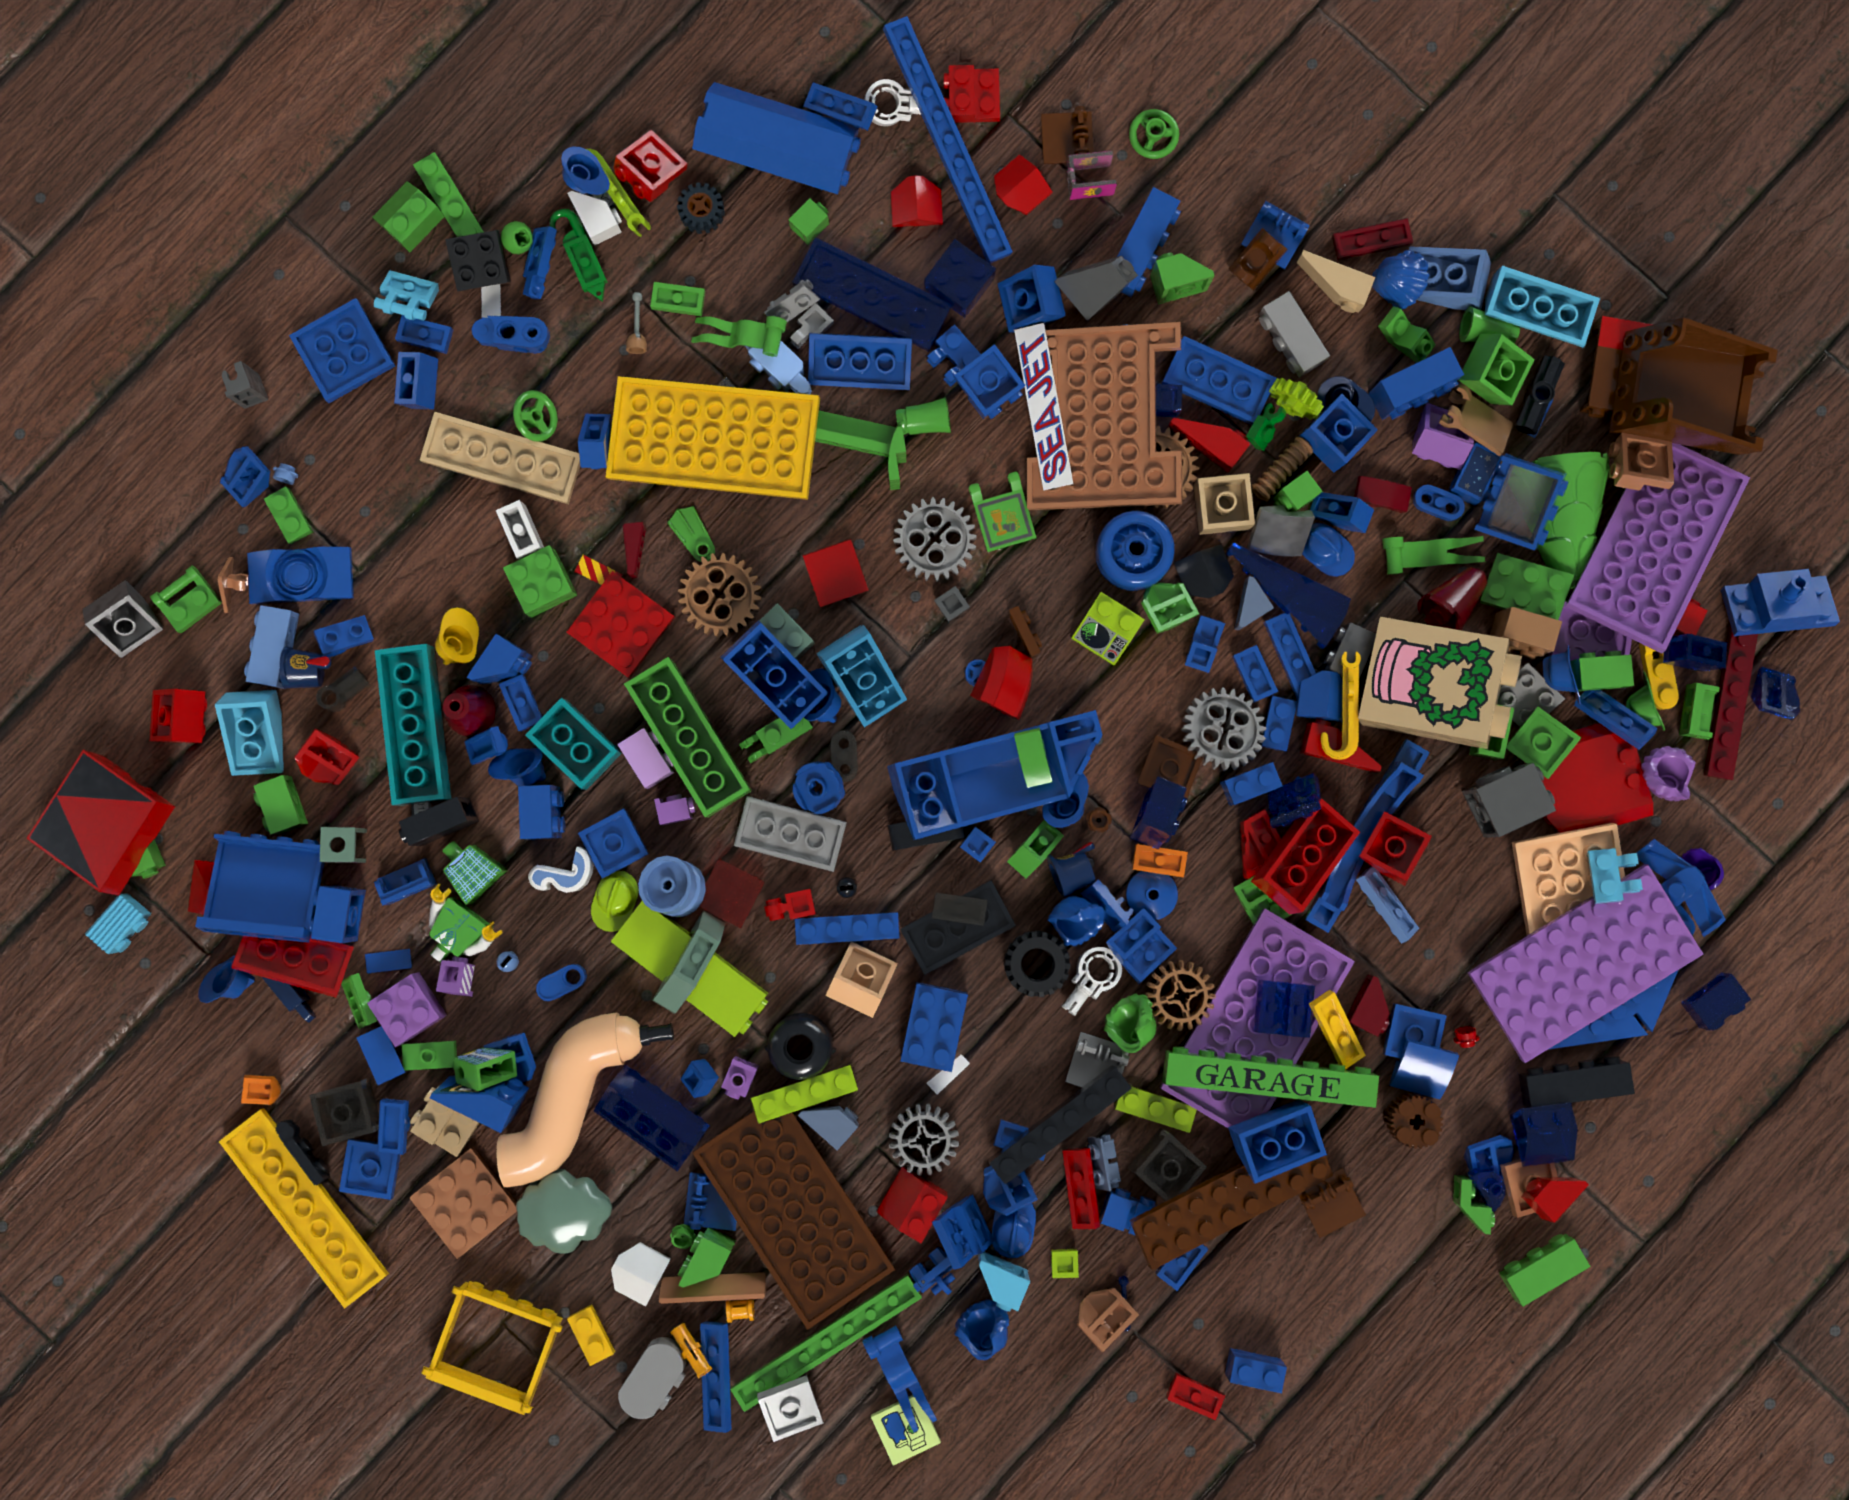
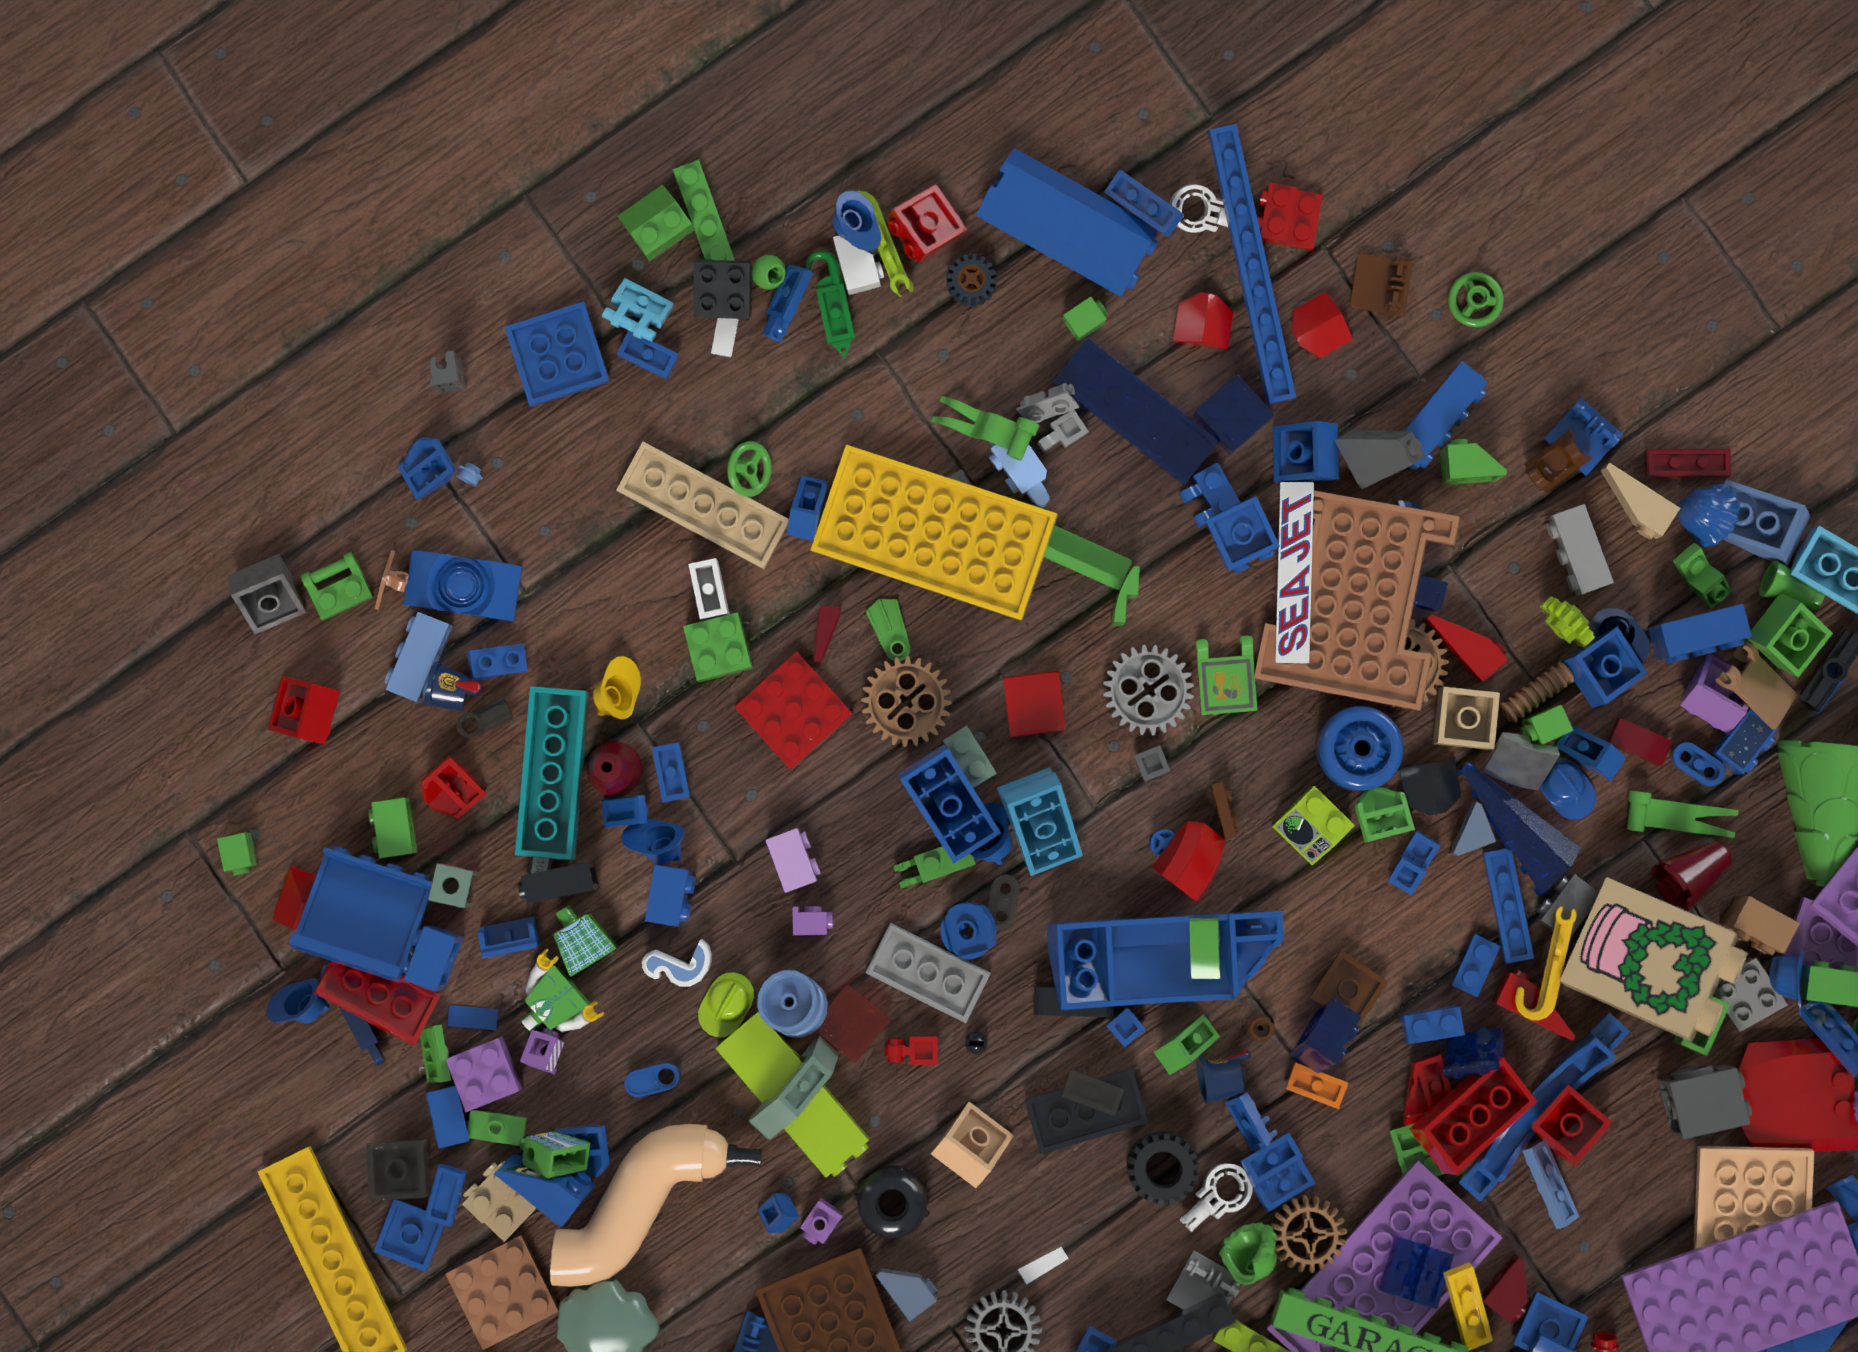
camera: 20 degrees right, 0 degrees up
(100, 823) = (203, 808): red tile -> none
(118, 924) = (198, 918): medium azure brick -> none
(251, 731) = (379, 743): medium azure slope -> none
(260, 1090) = (311, 1126): orange plate -> none
(288, 515) = (463, 518): bright green plate -> none
(301, 1151) = (342, 1200): black hinge -> none
(416, 380) = (630, 405): blue brick -> none
(491, 333) = (719, 368): blue piece -> none
(500, 662) = (661, 725): blue slope -> none
(511, 965) = (603, 1050): medium blue hinge -> none
(573, 744) = (718, 829): teal brick -> none
(594, 570) = (776, 645): sticker -> none
(613, 843) = (738, 943): blue plate -> none
(636, 342) = (872, 410): hinge -> none
(651, 1117) = (719, 1244): clear blue slope -> none
(677, 299) = (926, 373): bright green plate -> none
(688, 737) = (841, 848): bright green brick -> none
(803, 1094) = (886, 1253): lime plate -> none
(847, 928) = (968, 1086): blue plate -> none
(859, 361) = (1107, 481): blue slope -> none
(925, 418) = (1164, 558): bright green plant -> none
(934, 1027) = (1039, 1211): blue brick -> none
(1069, 810) = (1230, 1013): blue piece -> none
(1077, 920) = (1214, 1130): blue hair -> none
(1089, 161) = (1394, 316): clear piece -> none
(1142, 884) = (1292, 1107): blue dish -> none
(1219, 380) = (1489, 583): blue plate -> none
(1246, 736) = (1436, 971): light grey gear -> none
(1255, 673) = (1461, 906): blue plate -> none
(1263, 427) = (1526, 643): green plate -> none
(1321, 697) = (1526, 947): blue slope -> none
(1522, 502) = (1785, 785): window -> none
(1527, 587) = (1773, 877): bright green plate -> none
(1543, 742) = (1753, 1046): bright green plate -> none
(1605, 875) = (1789, 1205): medium azure plate -> none

